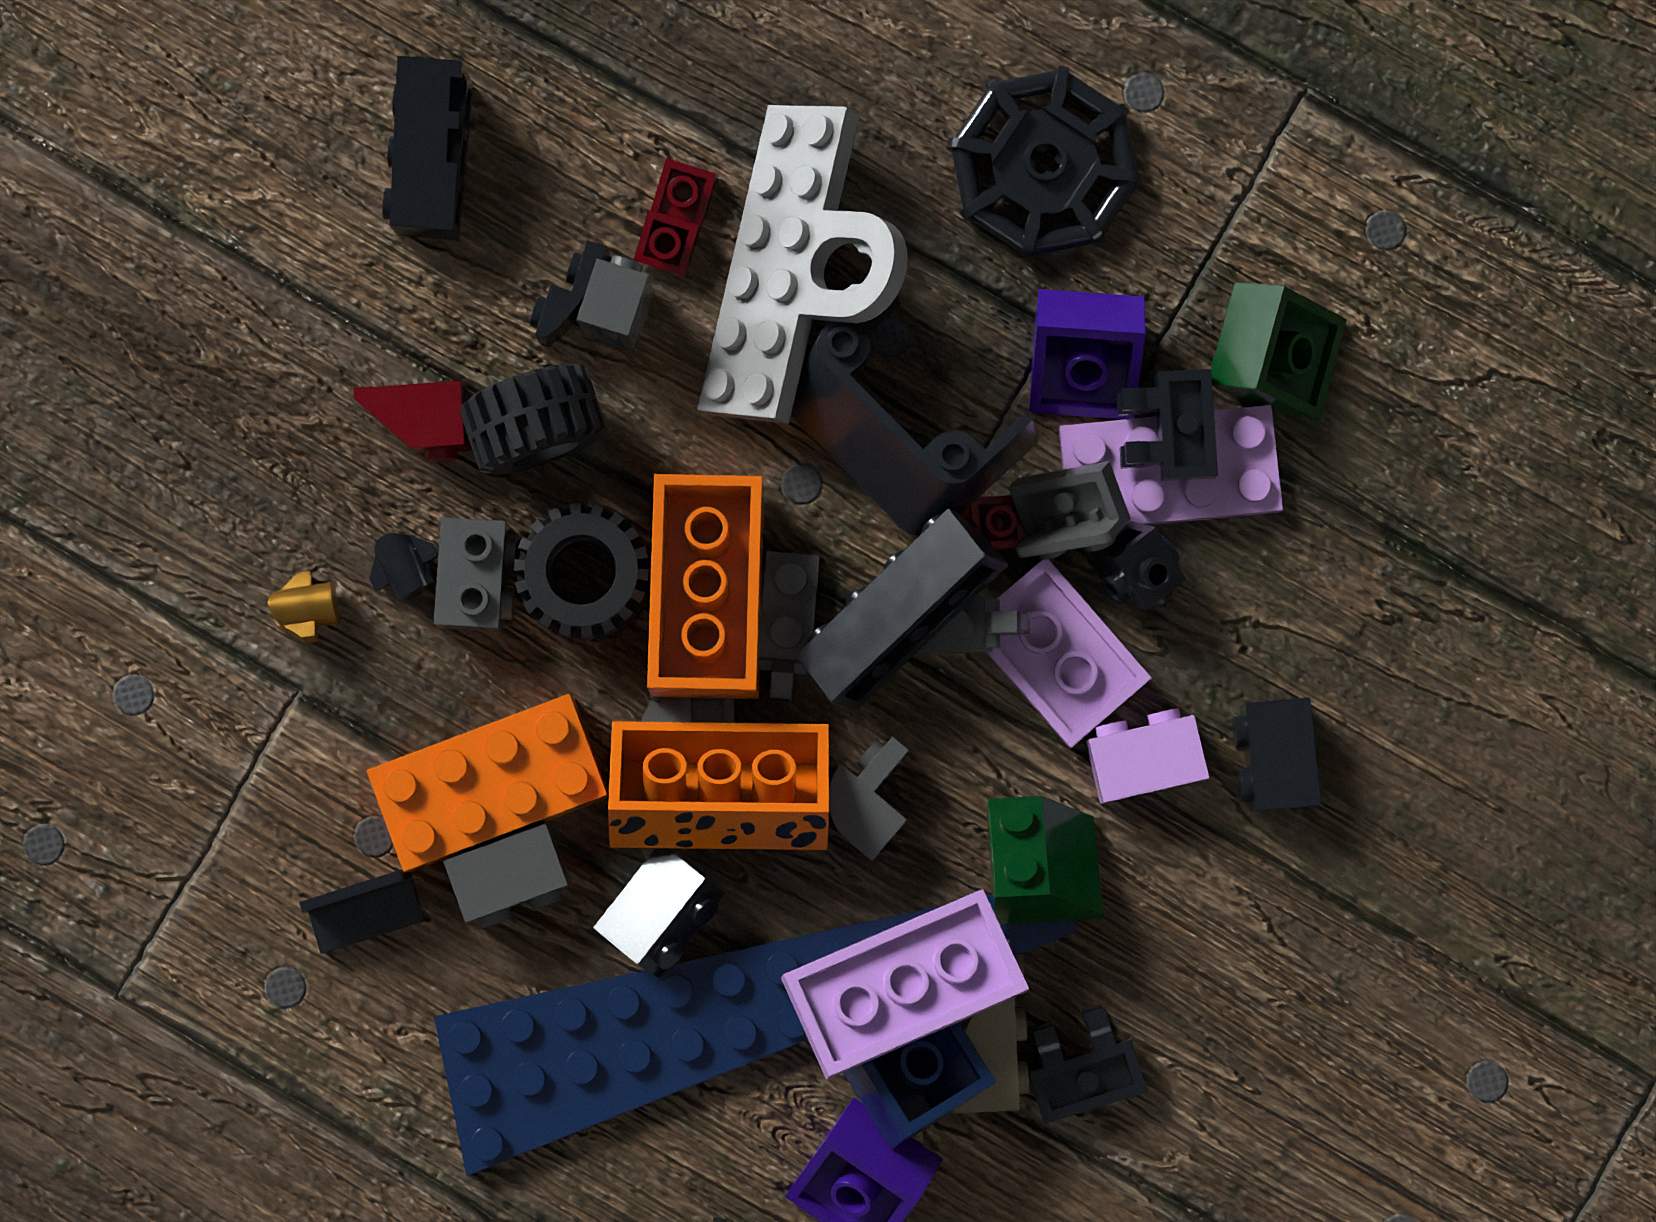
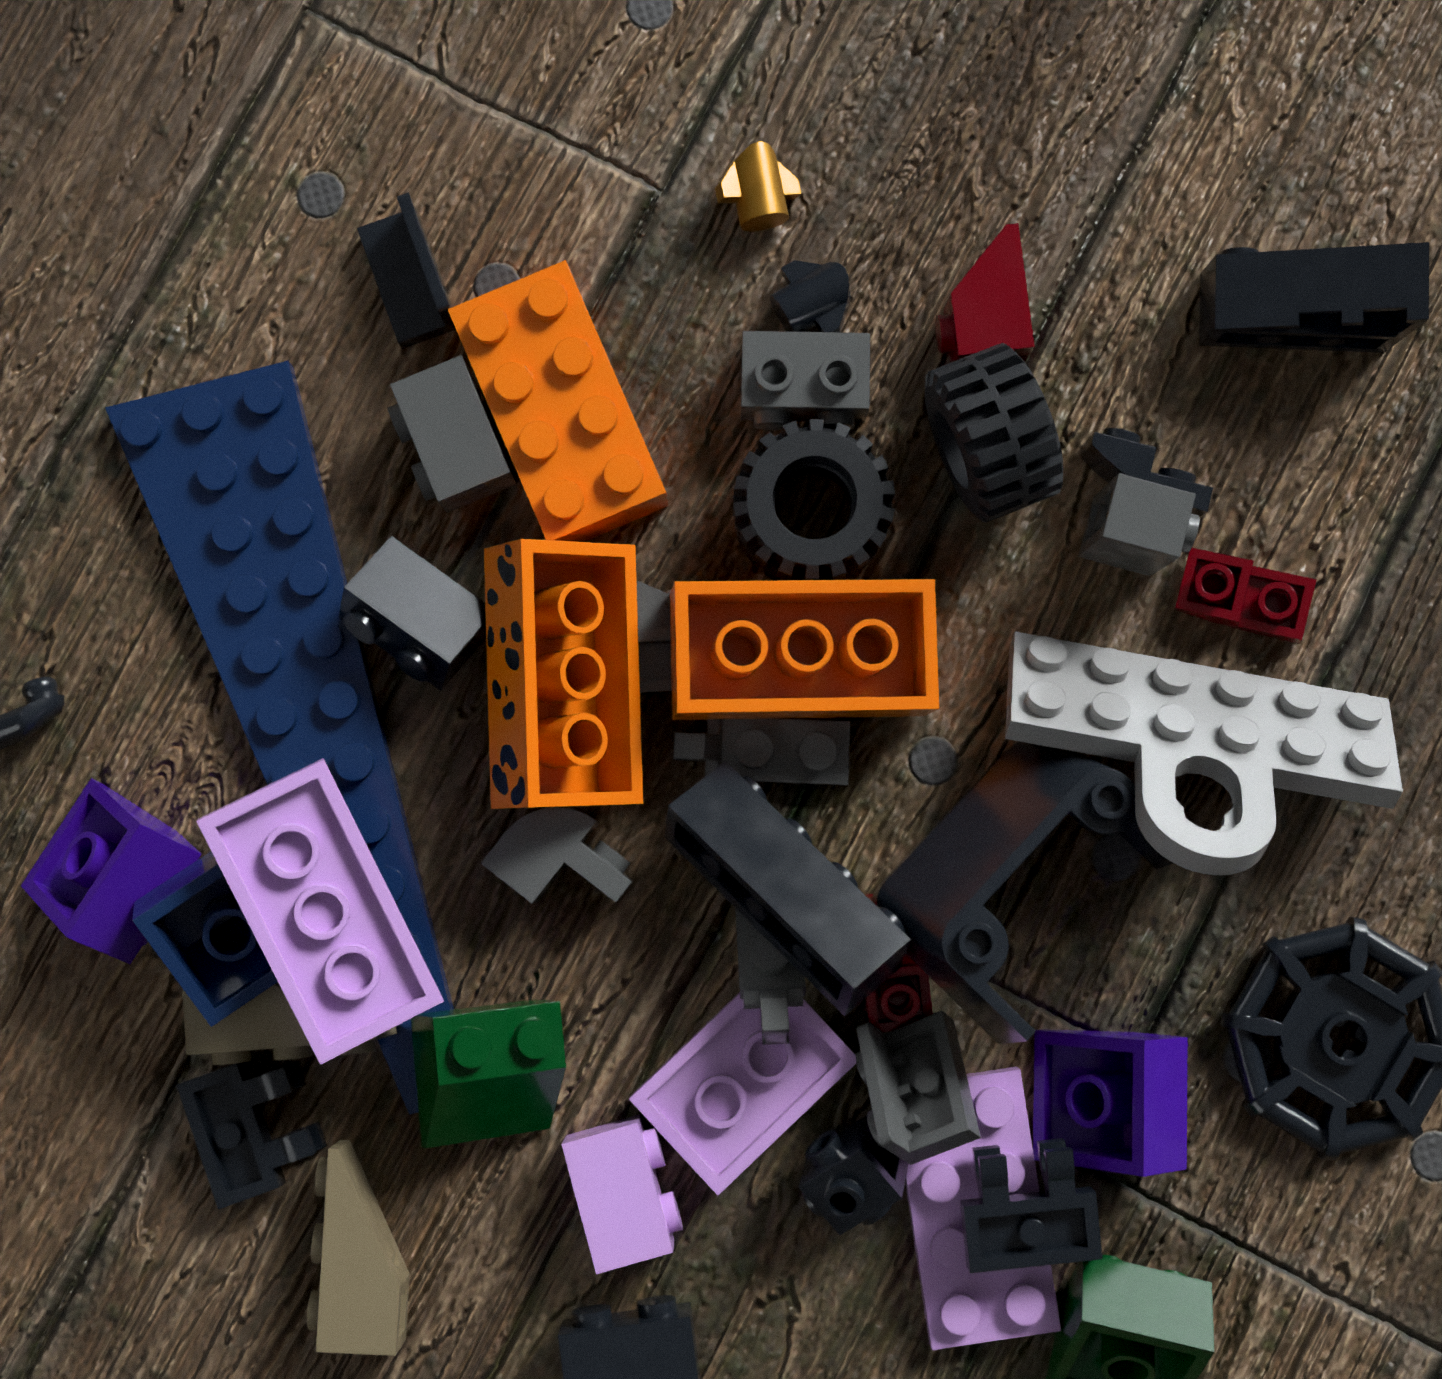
camera: 80 degrees right, 0 degrees up
(1205, 973) = (362, 1270): none -> dark tan slope

